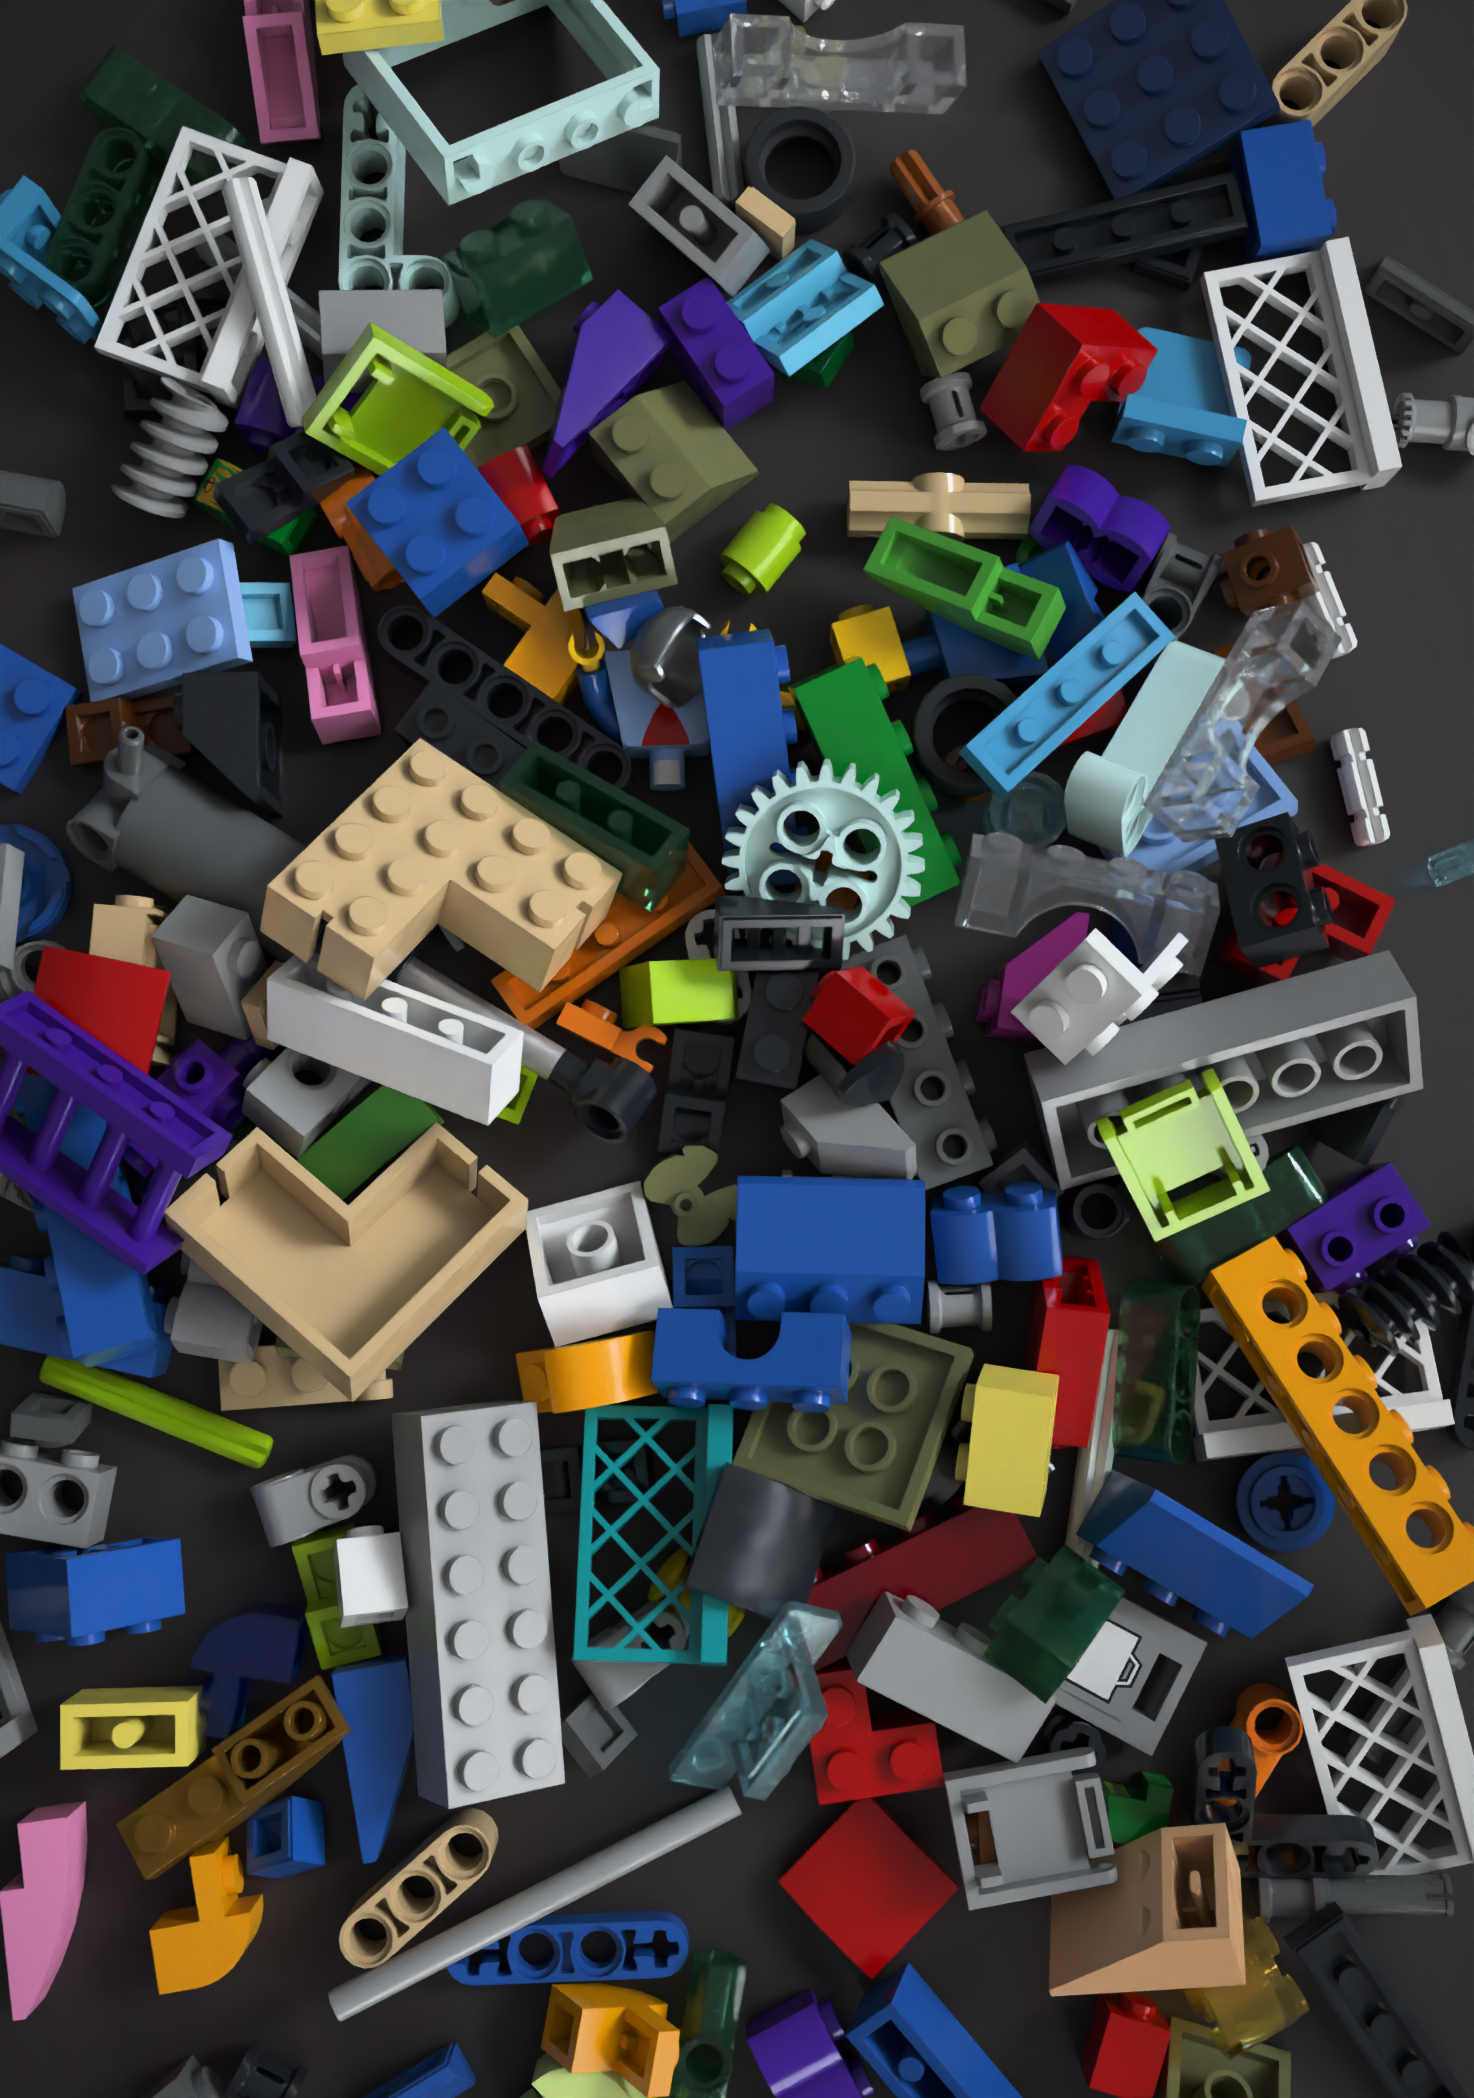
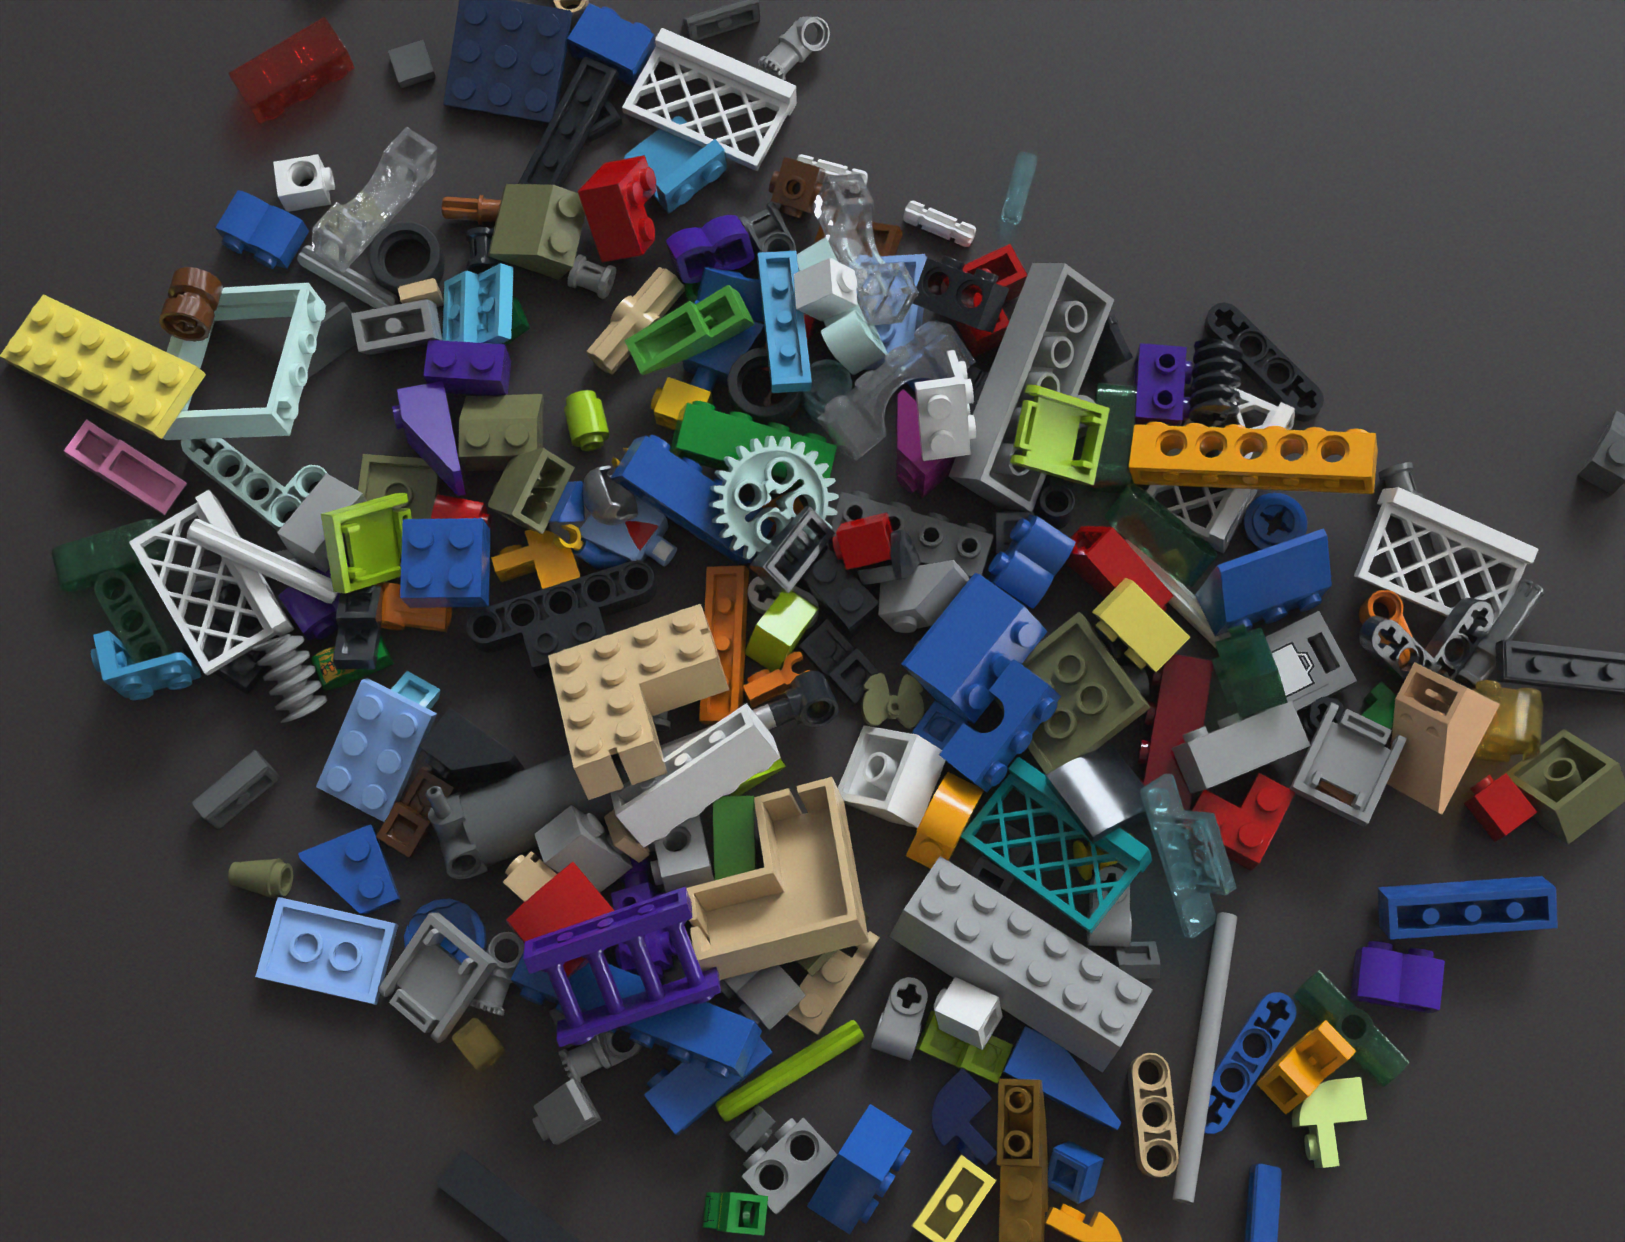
camera: 50 degrees left, 10 degrees down
(334, 645) = (458, 671): bright pink slope -> none
(518, 266) = (342, 430): clear green brick -> none
(602, 819) = (664, 594): clear green brick -> none
(869, 1885) = (1322, 877): red slope -> none
(958, 1306) = (1054, 607): light grey bush -> none
(1147, 714) = (825, 289): none -> white brick

